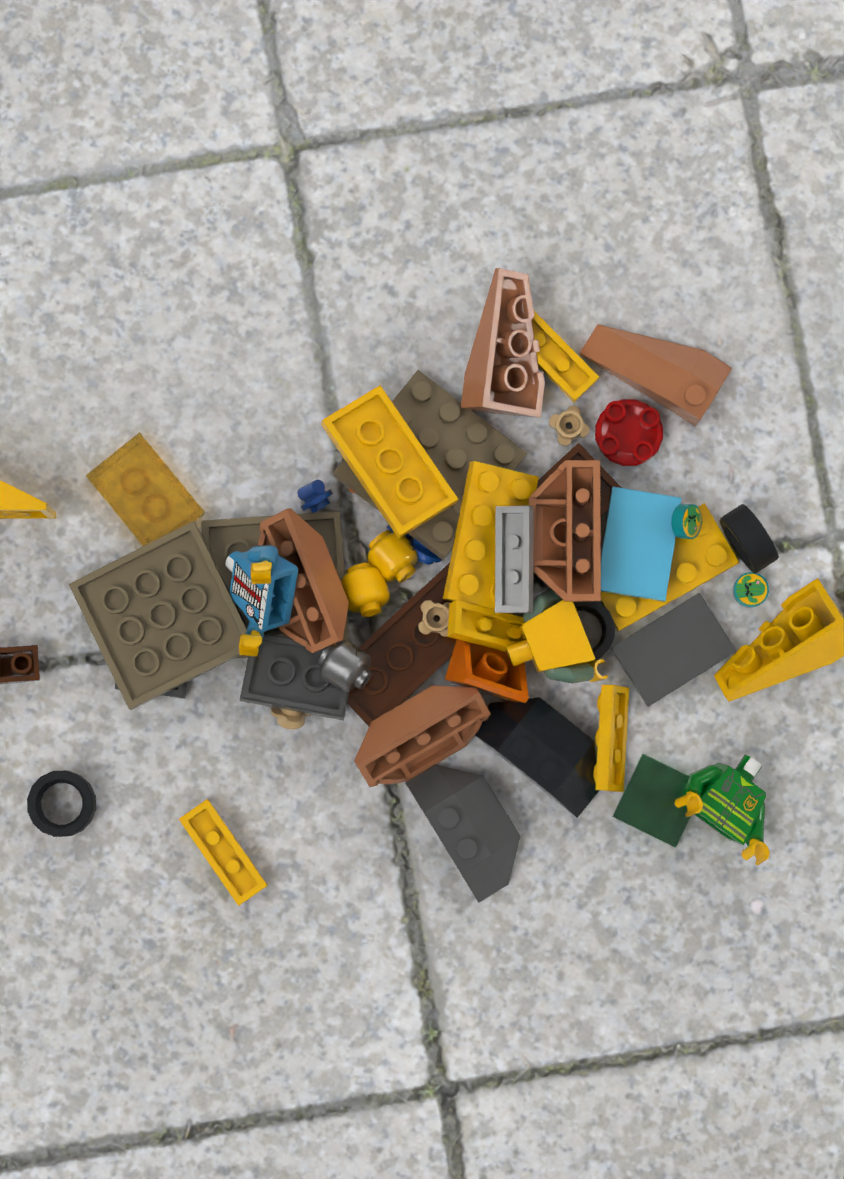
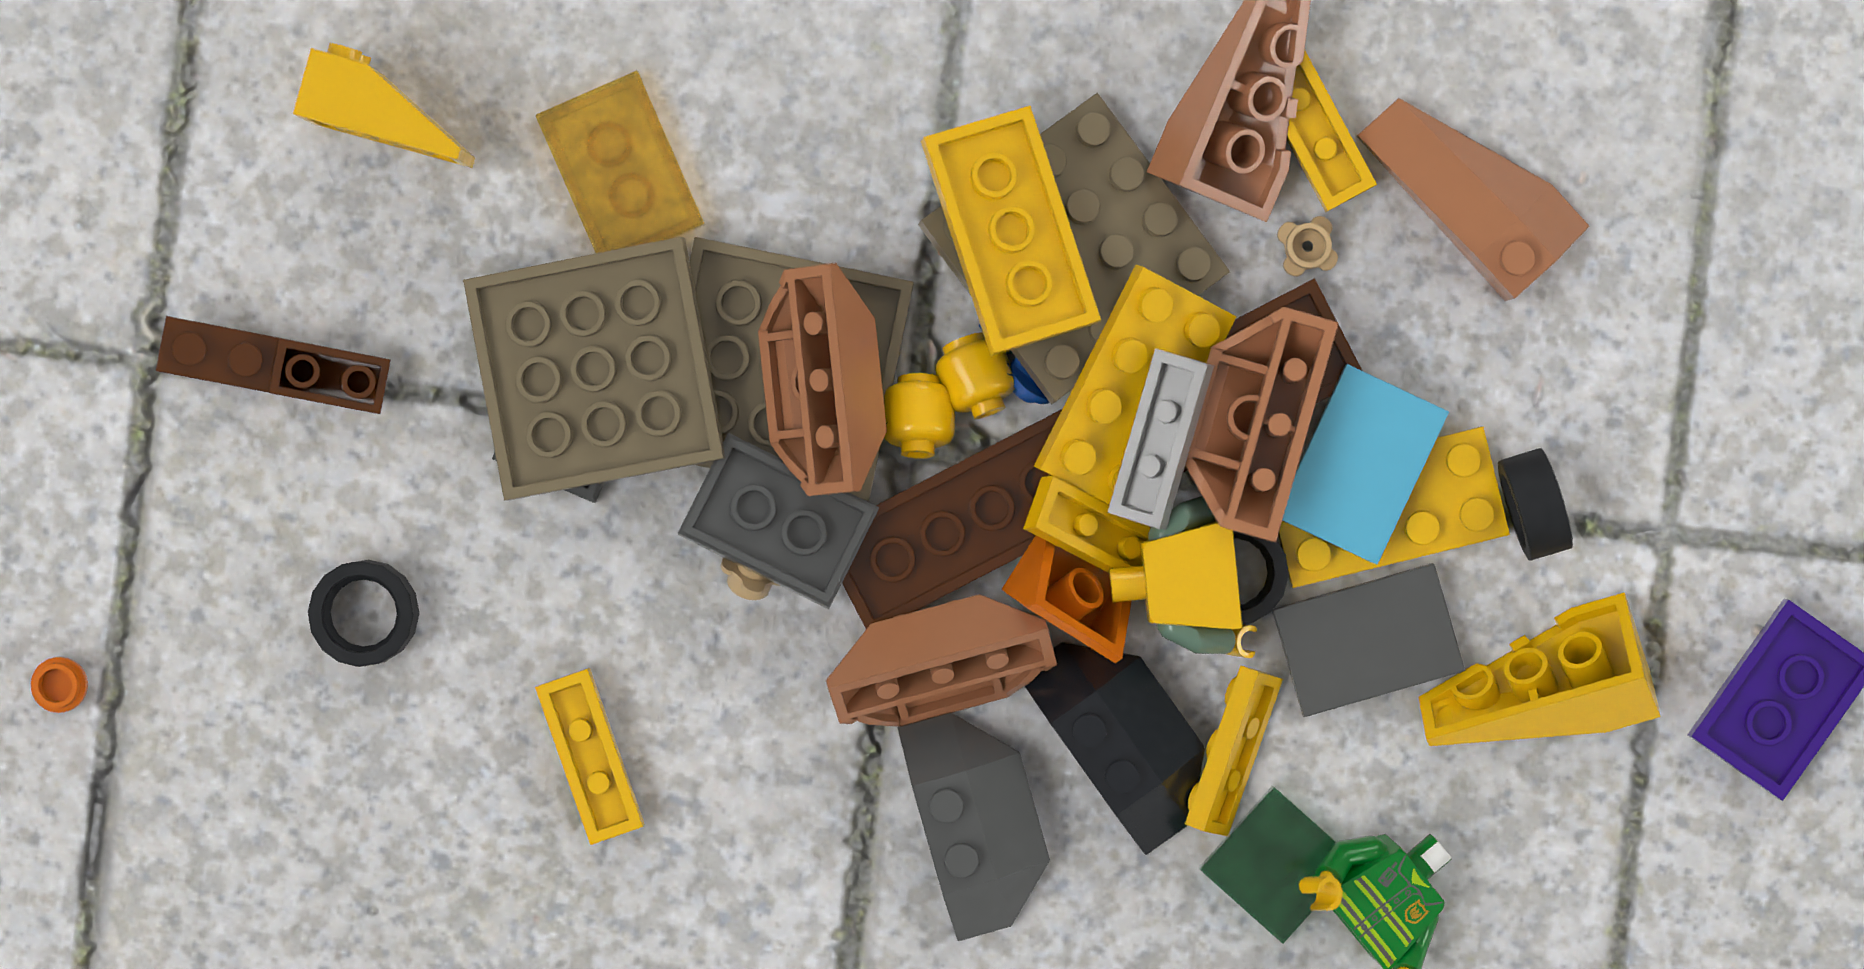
camera: 25 degrees right, 5 degrees up
(263, 590) = (760, 378): torso -> none
(314, 496) = (880, 247): blue plate -> none
(345, 666) = (853, 530): flat silver head -> none
(429, 611) = (1008, 477): tan plate -> none
(629, 432) = (1398, 283): red dish -> none
(686, 521) = (1446, 451): tile -> none
(750, 590) = (1515, 581): tile -> none

